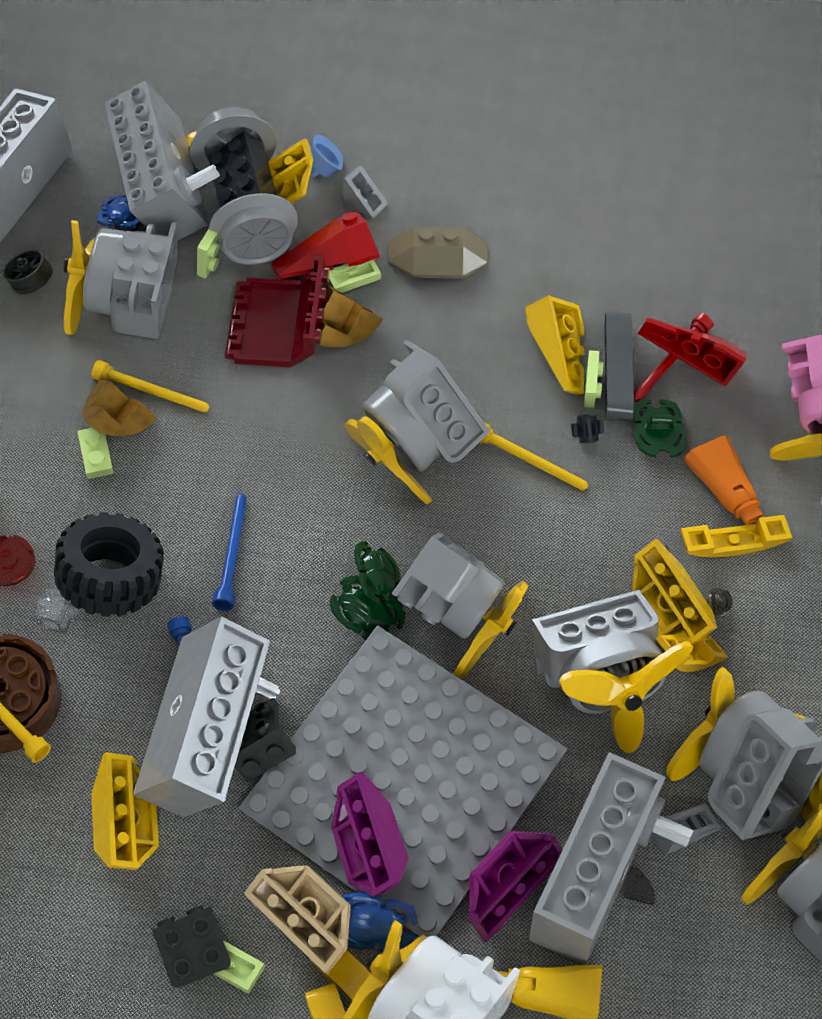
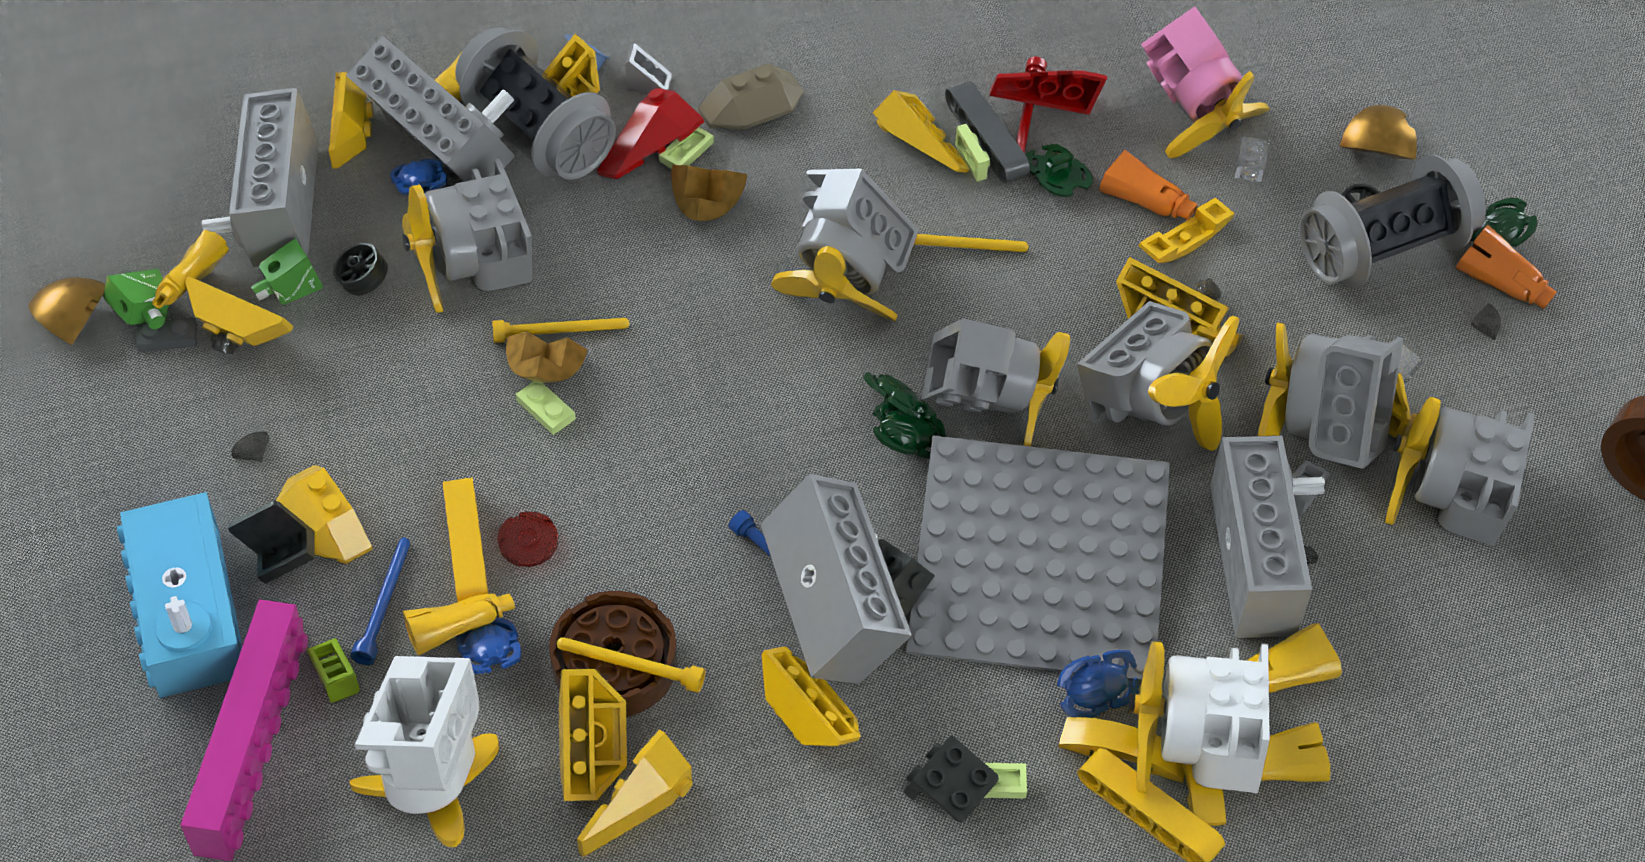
camera: 30 degrees left, 5 degrees down
(54, 611) = (613, 558): clear brick -> none
(95, 148) = (349, 121): none -> yellow wedge
(101, 588) = (644, 491): black tyre -> none
(207, 254) = (538, 174): yellowish green plate -> none
(224, 597) = (765, 478): blue piece -> none
(277, 319) = (645, 214): dark red hinge -> none
(304, 911) = (1038, 699): tan wedge -> none
(368, 837) = (1050, 613): magenta wedge -> none
(509, 878) = (1193, 589): magenta wedge -> none
(587, 428) = (998, 195): black gear -> none

